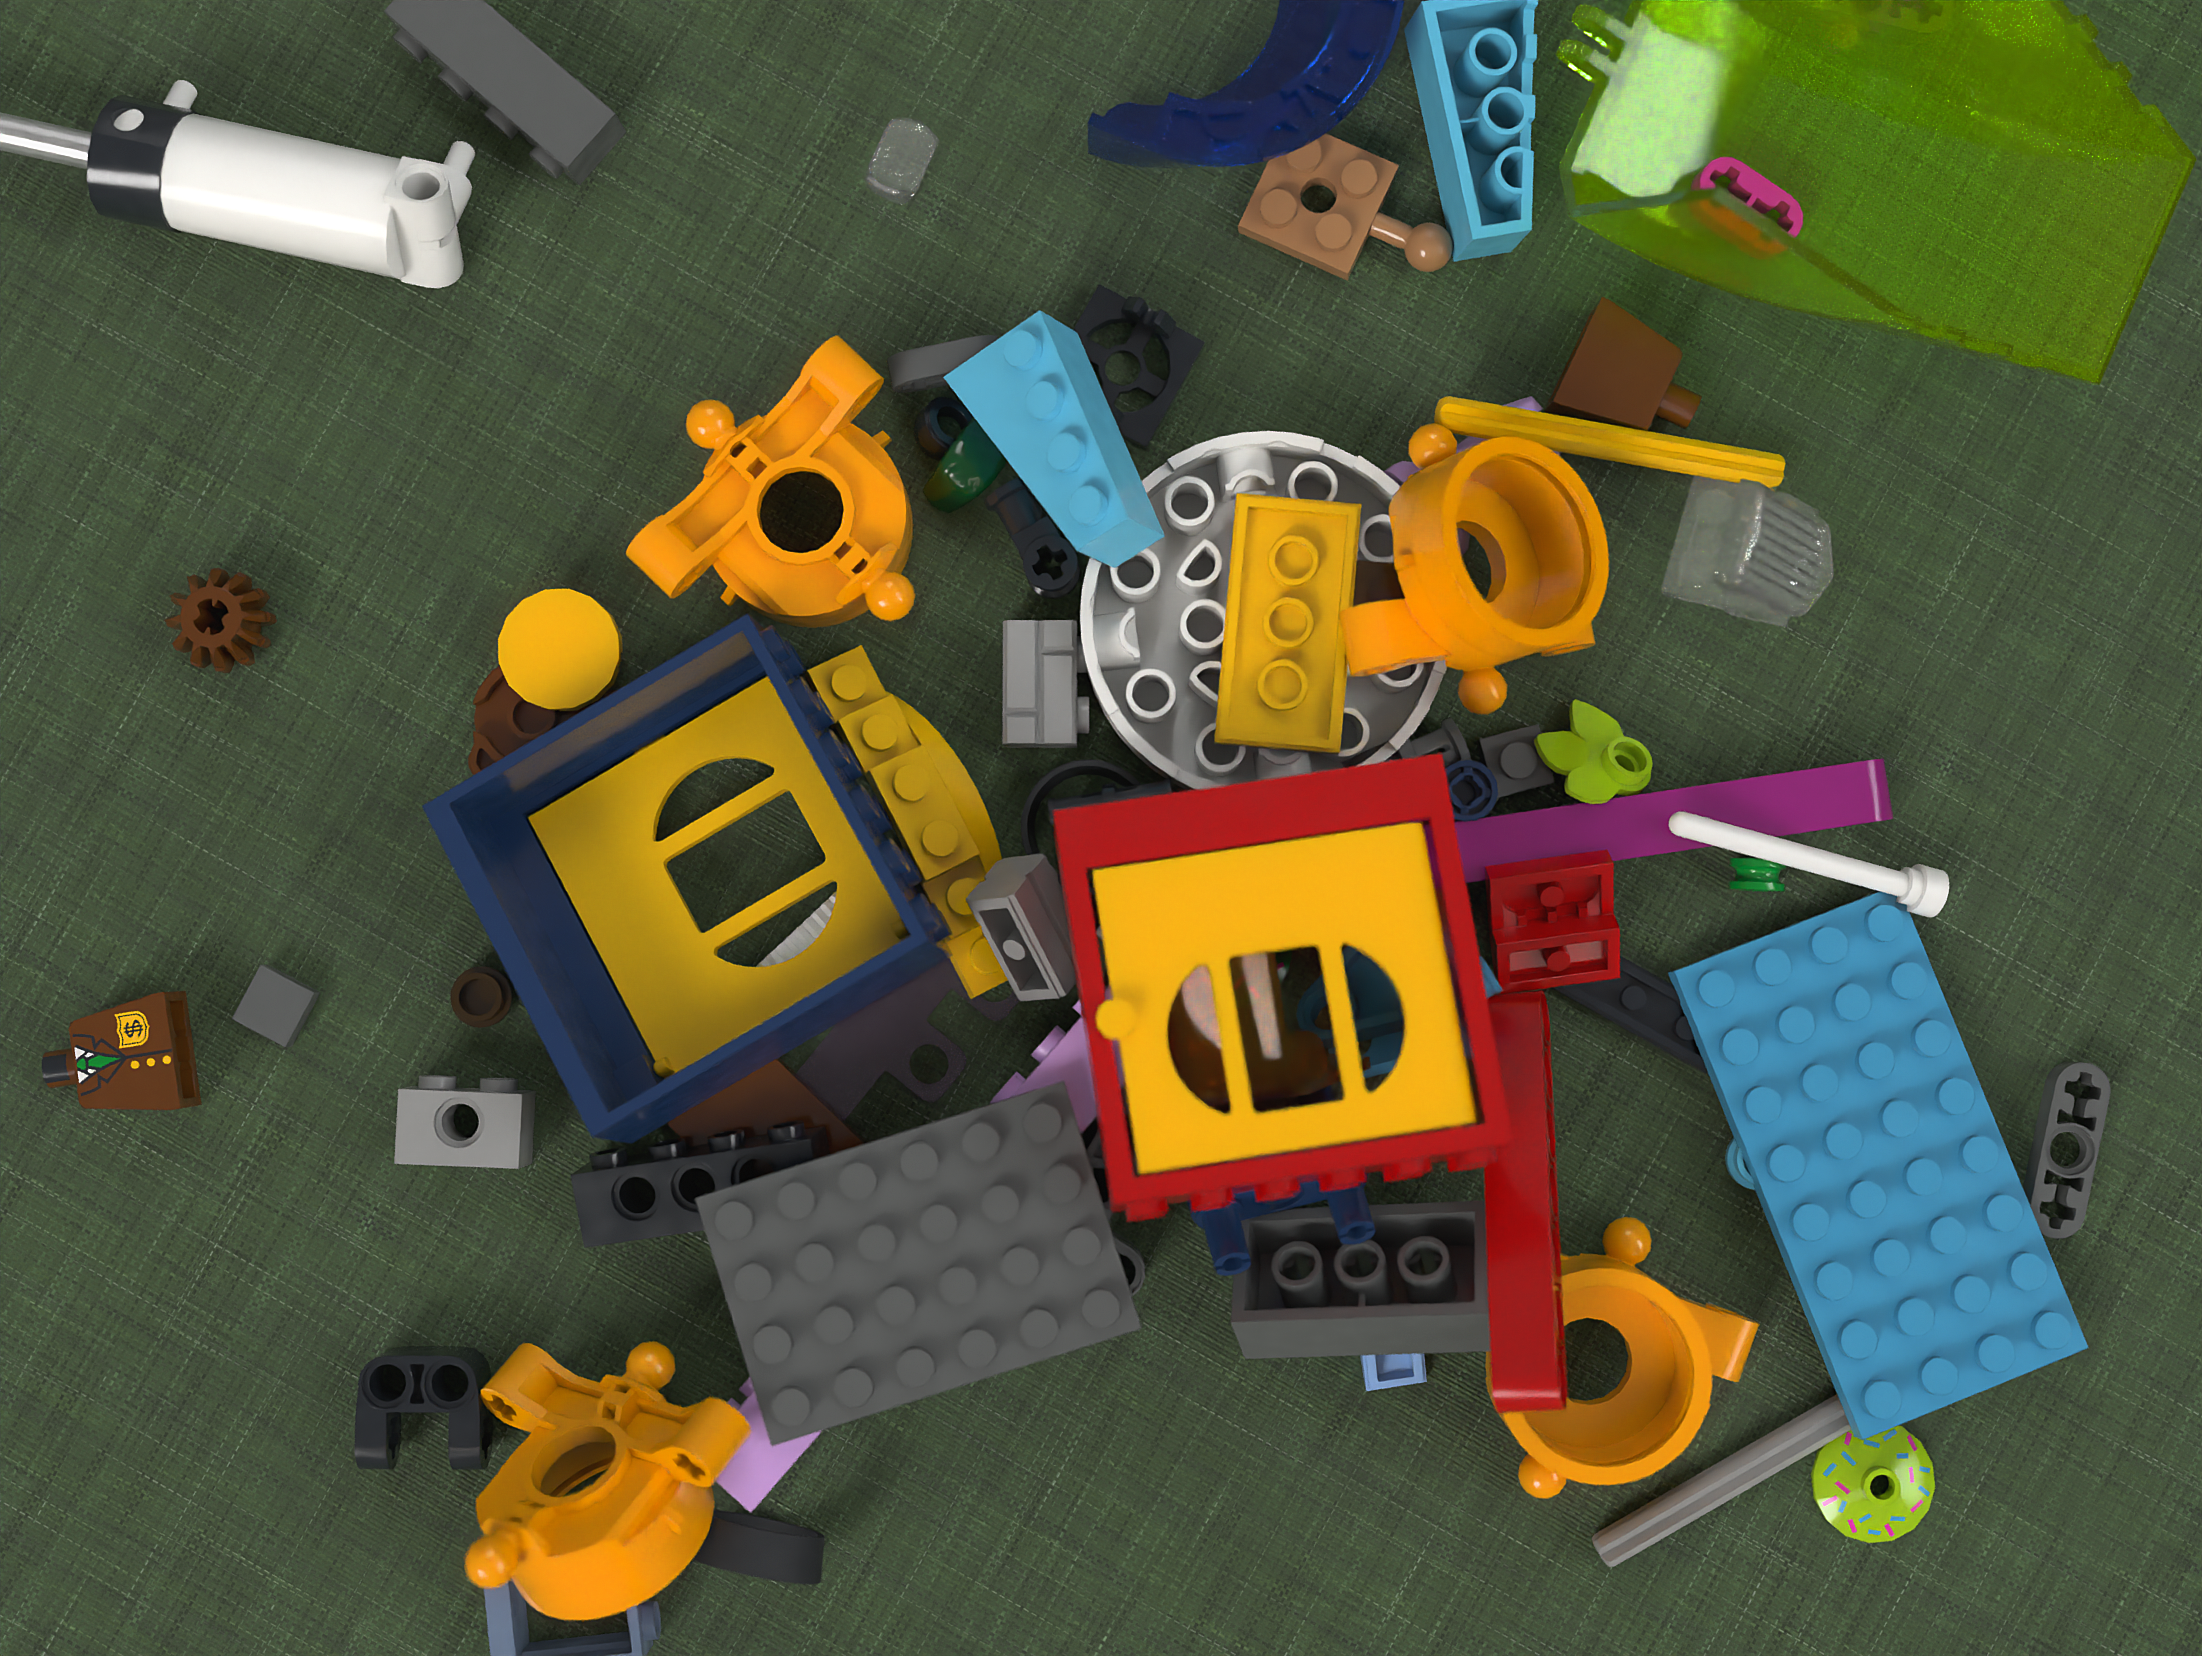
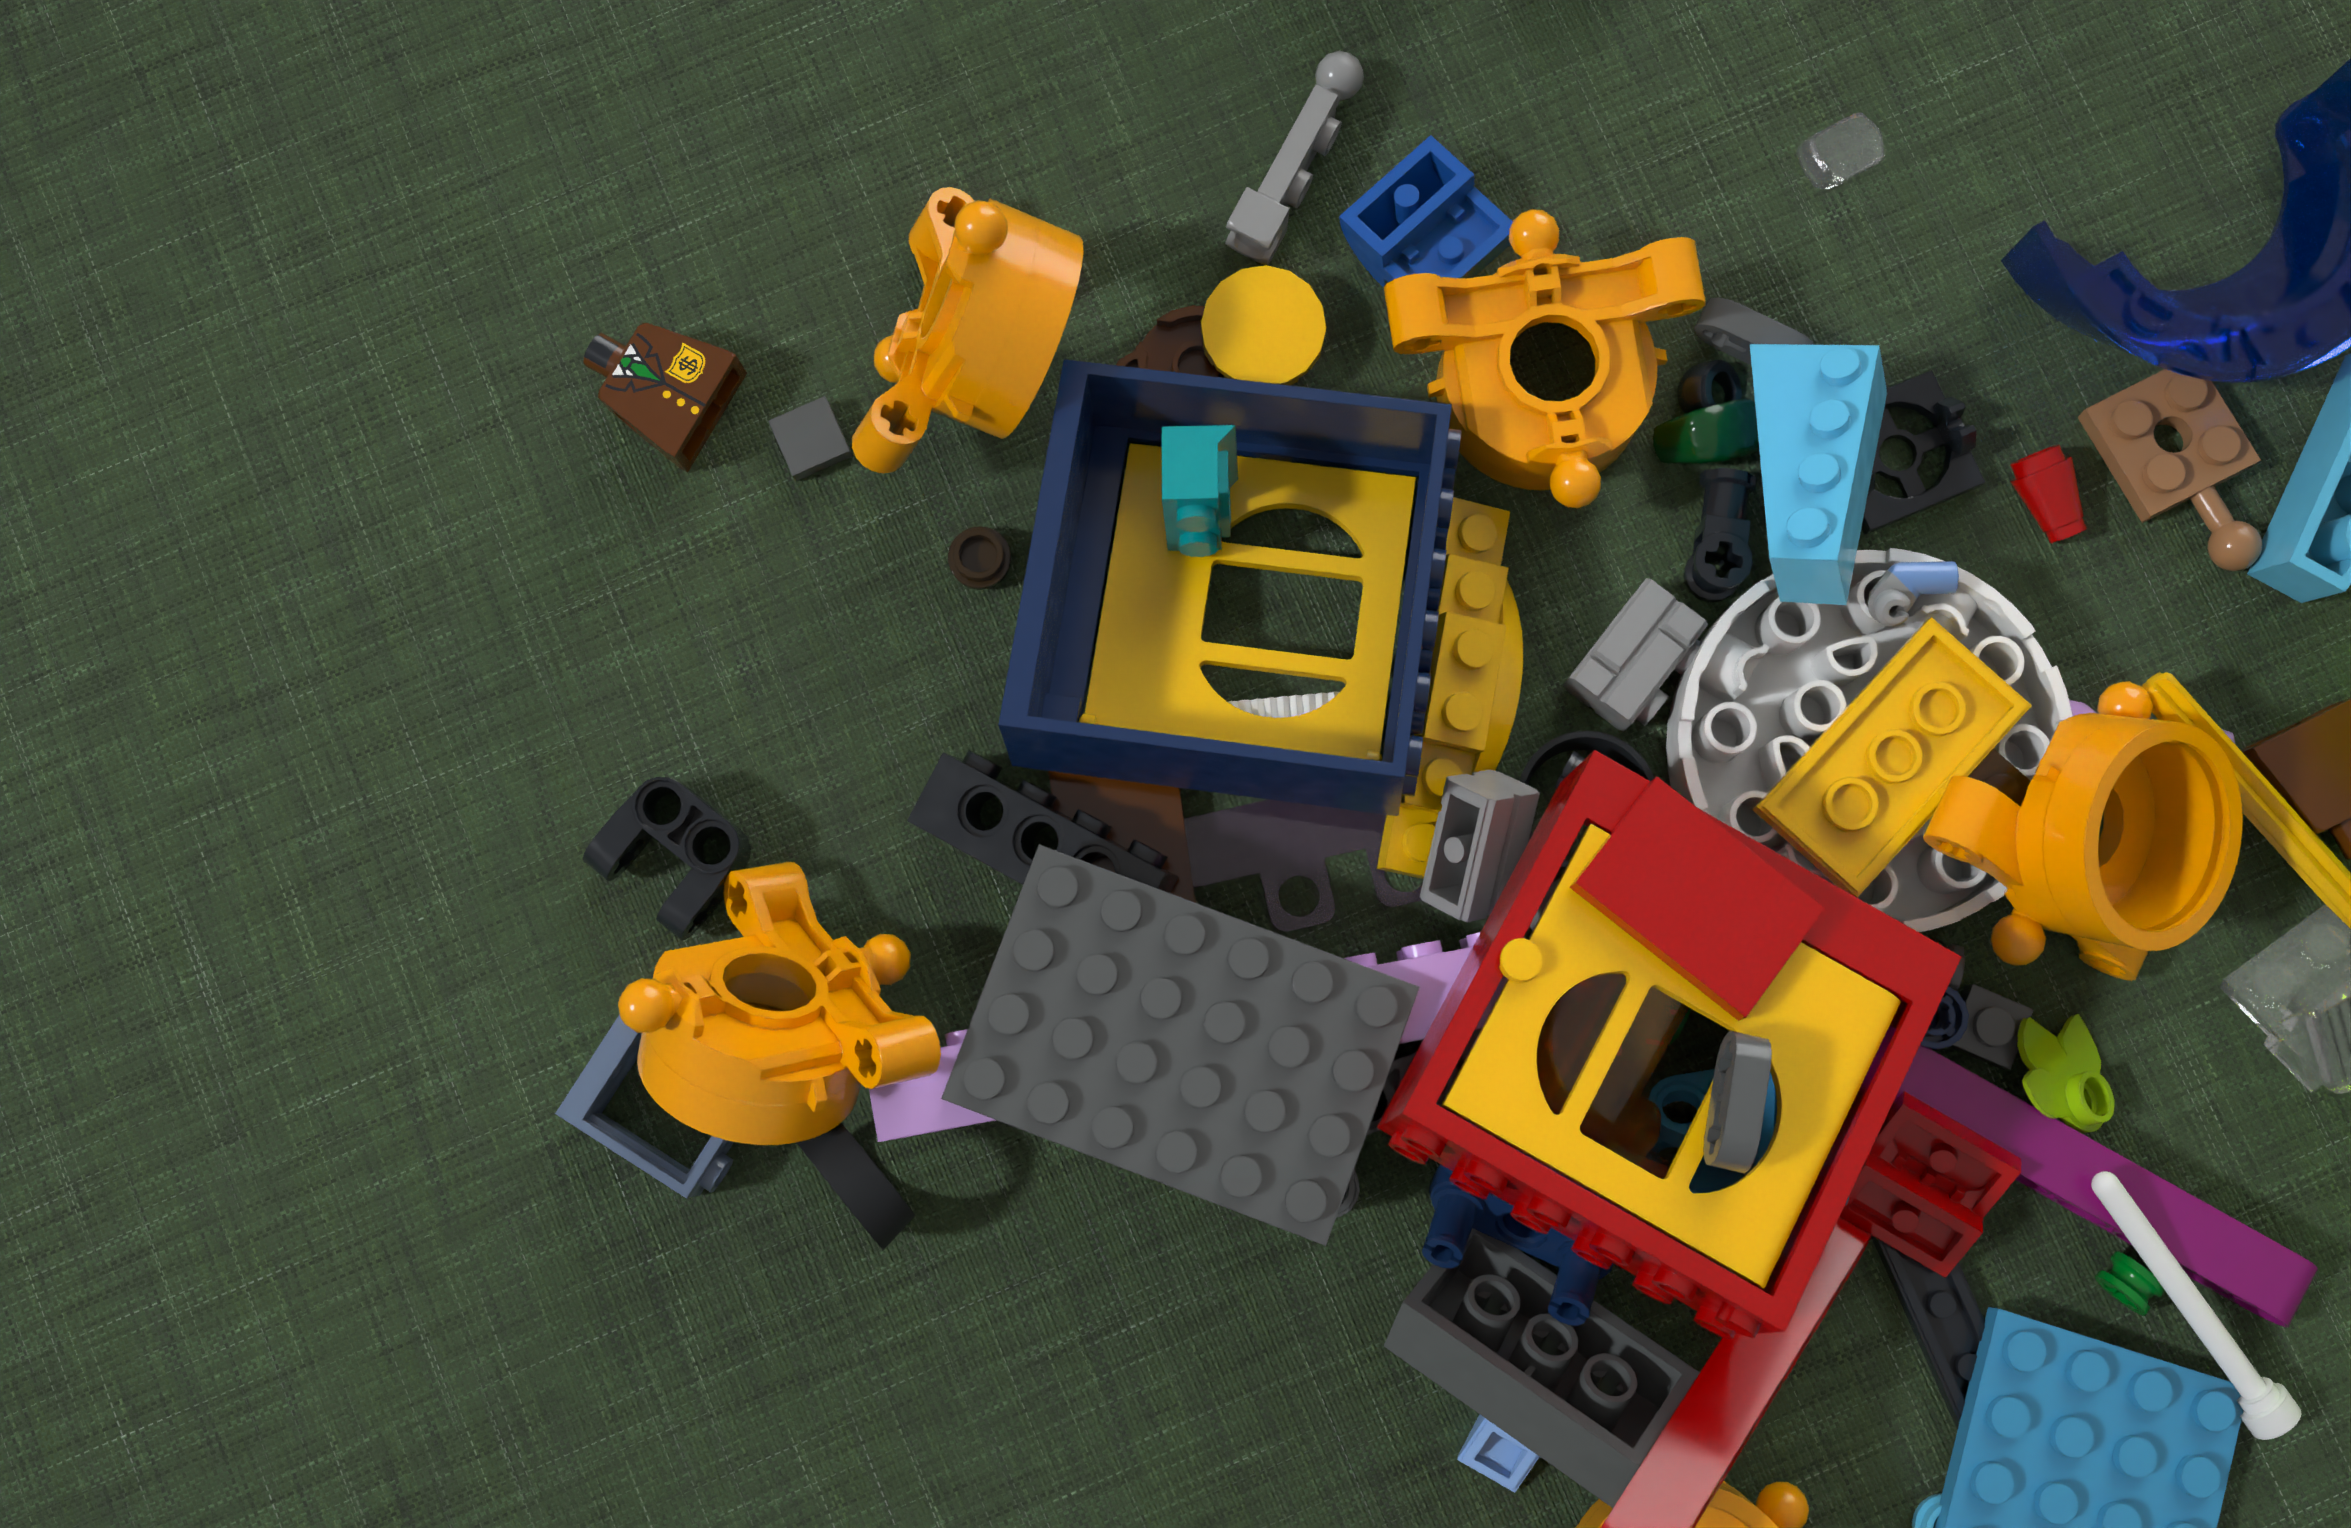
camera: 40 degrees right, 5 degrees down
(200, 618) = (989, 94): reddish brown gear -> none
(339, 831) = (982, 327): none -> light orange piece
(428, 1129) = (850, 637): light grey brick -> none
(491, 564) = (1262, 216): none -> light grey plate
(604, 823) = (1196, 485): none -> teal window
(621, 468) = (1425, 220): none -> blue brick
(1198, 483) = (1905, 583): none -> arm
(1212, 867) = (1697, 898): none -> red tile
(1259, 311) = (2050, 492): none -> red cone
(1352, 1002) = (1737, 1102): none -> dark grey beam

